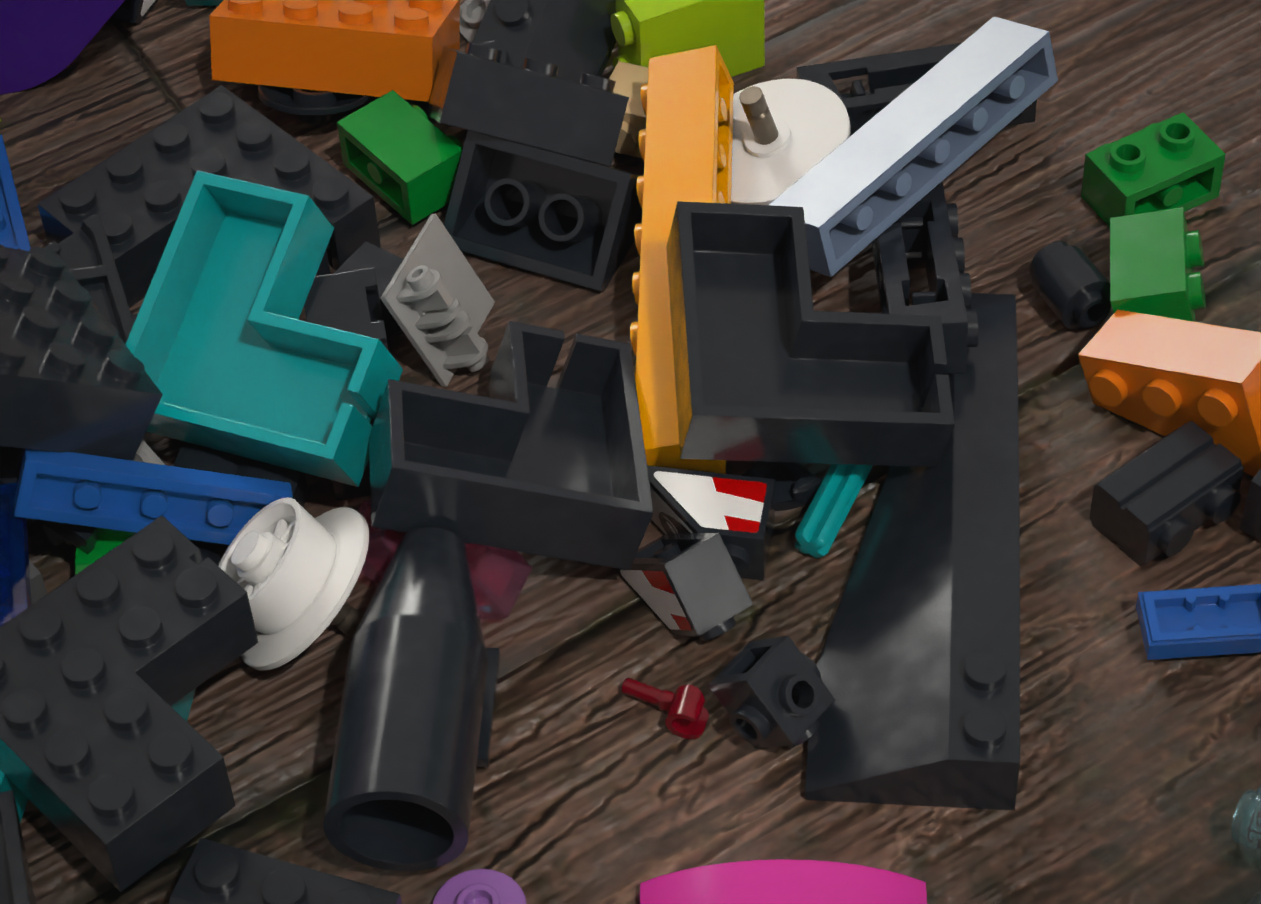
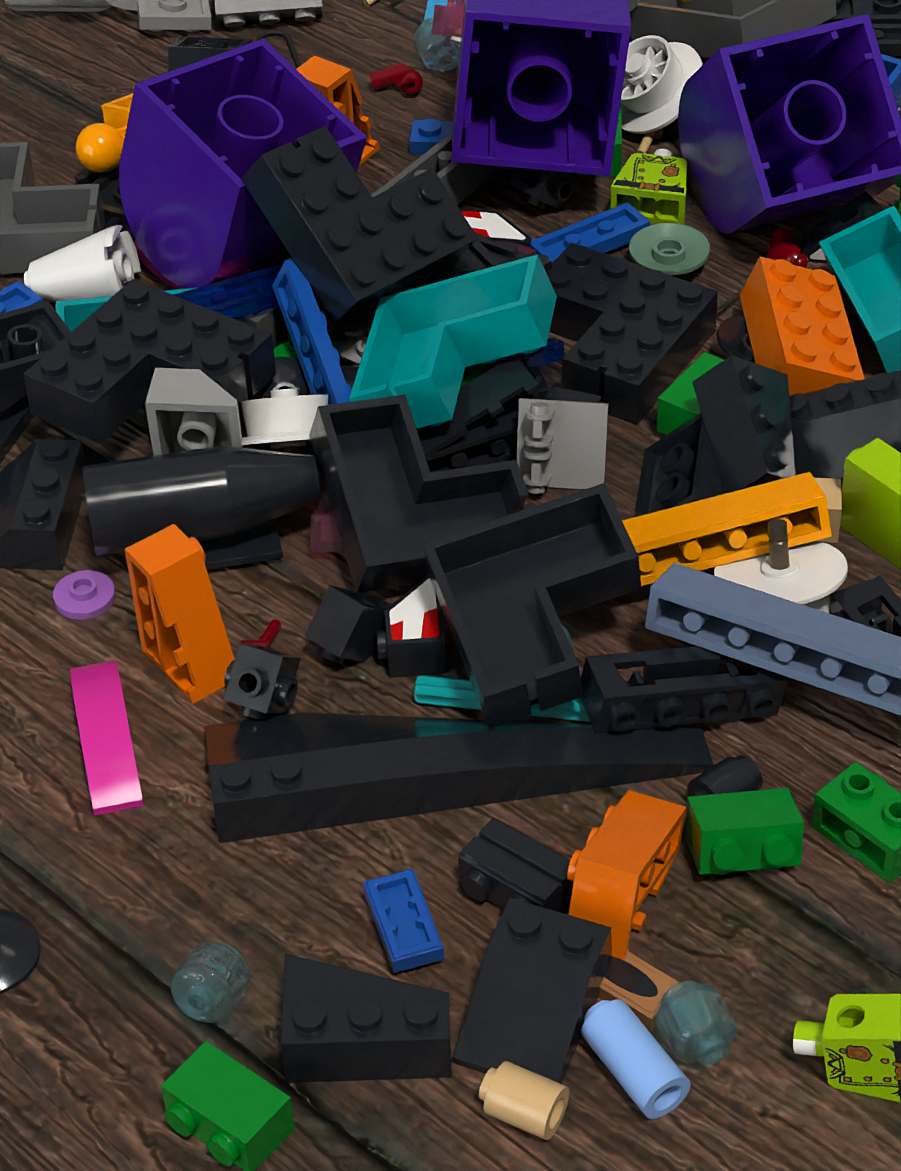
camera: 75 degrees right, 5 degrees down
(68, 130) = (669, 248): none -> sand green dish
(131, 32) = (781, 248): none -> dark red arm
(282, 675) = (190, 412): none -> light grey slope
(645, 754) = (179, 612): none -> orange wedge

